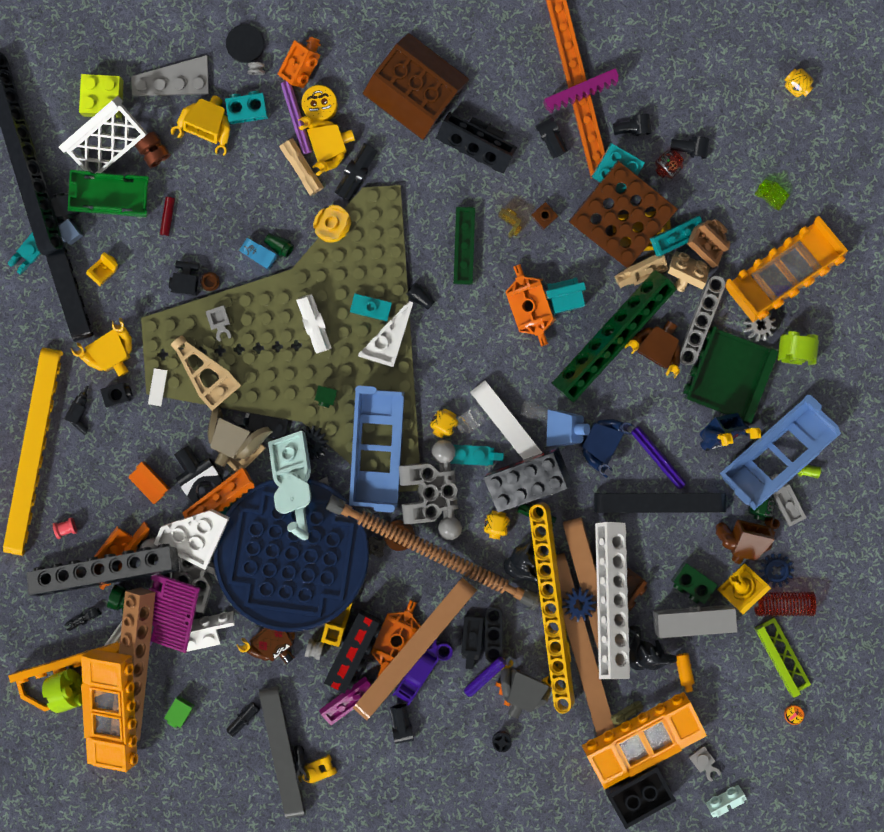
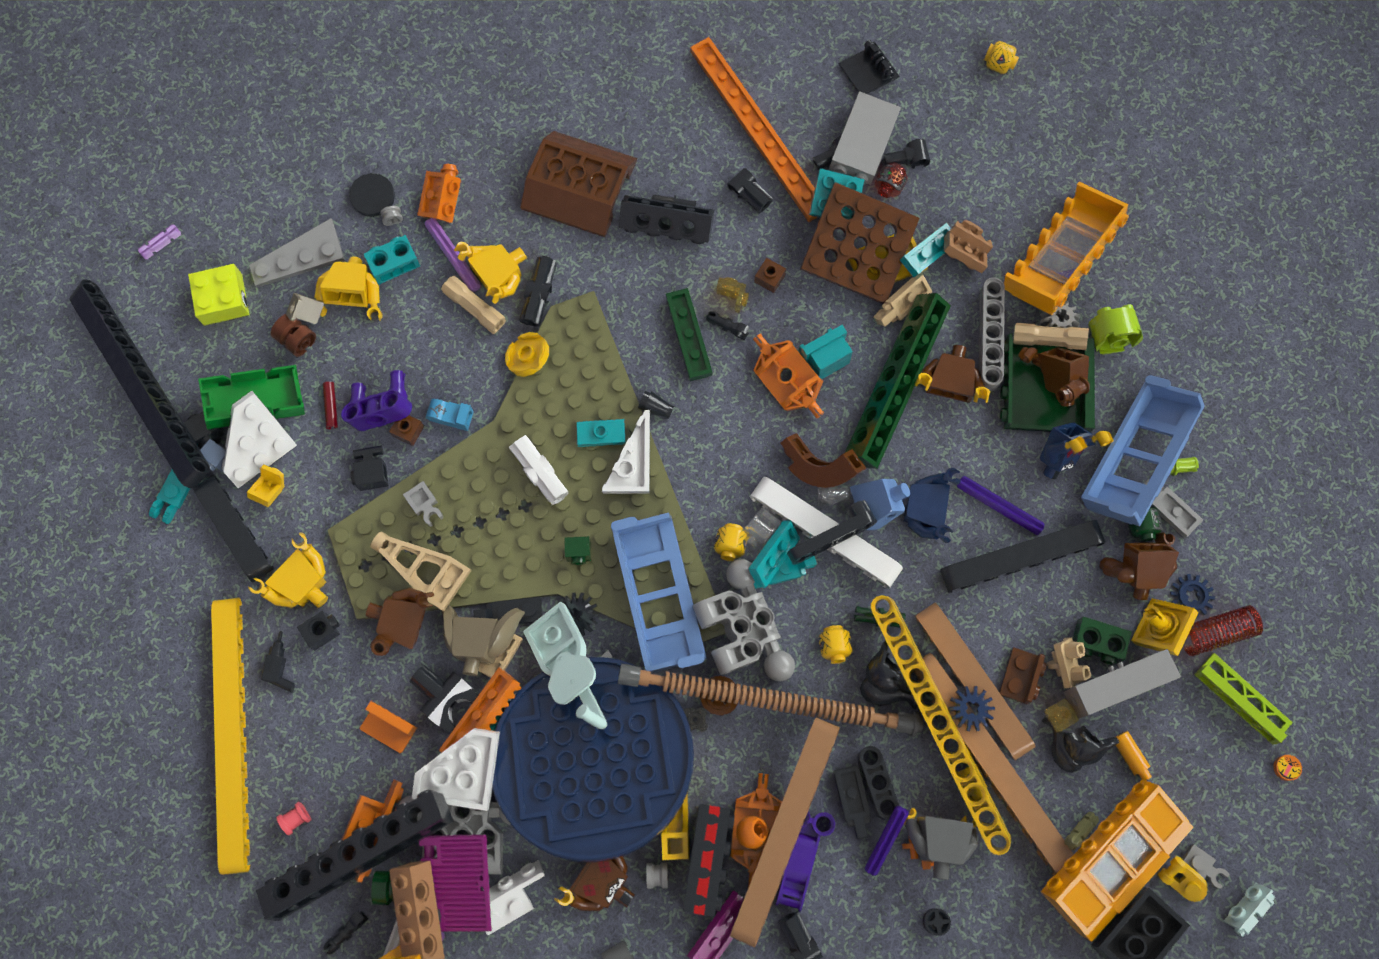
camera: 20 degrees left, 15 degrees down
(63, 32) = (159, 241): none -> medium lavender axle
(96, 123) = (217, 319): white fence -> none
(101, 231) = (253, 440): none -> white plate
(157, 387) = (367, 594): white sticker -> none
(165, 131) = (304, 308): none -> bracket
(177, 407) = (398, 619): none -> reddish brown torso
(204, 235) = (378, 408): none -> dark purple piece
(210, 281) = (400, 463): reddish brown plate -> none
(228, 257) = (410, 434): none -> reddish brown plate
(280, 245) = (476, 397): dark green cone -> none
(319, 103) = (475, 228): yellow head -> none
(390, 642) = (752, 832): none -> orange piece
(472, 444) = (774, 553): none -> teal plate
(497, 246) = (738, 329): none -> black piece
(527, 390) = (820, 472): none -> reddish brown arch
(528, 480) = (855, 574): black brick -> none
(546, 439) = (860, 520): none -> black beam
(580, 90) = (766, 129): magenta gear -> none
(612, 600) = (1012, 692): white brick -> none
(642, 628) = (1061, 715): none -> clear yellow bracket
(660, 121) = (864, 137): none -> light grey panel
(662, 591) = (1066, 662): none -> tan hips
(686, 57) = (869, 69): none -> black hinge
(688, 271) = (956, 284): tan plate -> none
(691, 773) = (1190, 886): none -> yellow plate
(732, 333) = (1052, 336): none -> tan axle
(743, 372) = (1062, 370): none -> reddish brown torso
(772, 194) = (1018, 177): clear neon green bracket -> none

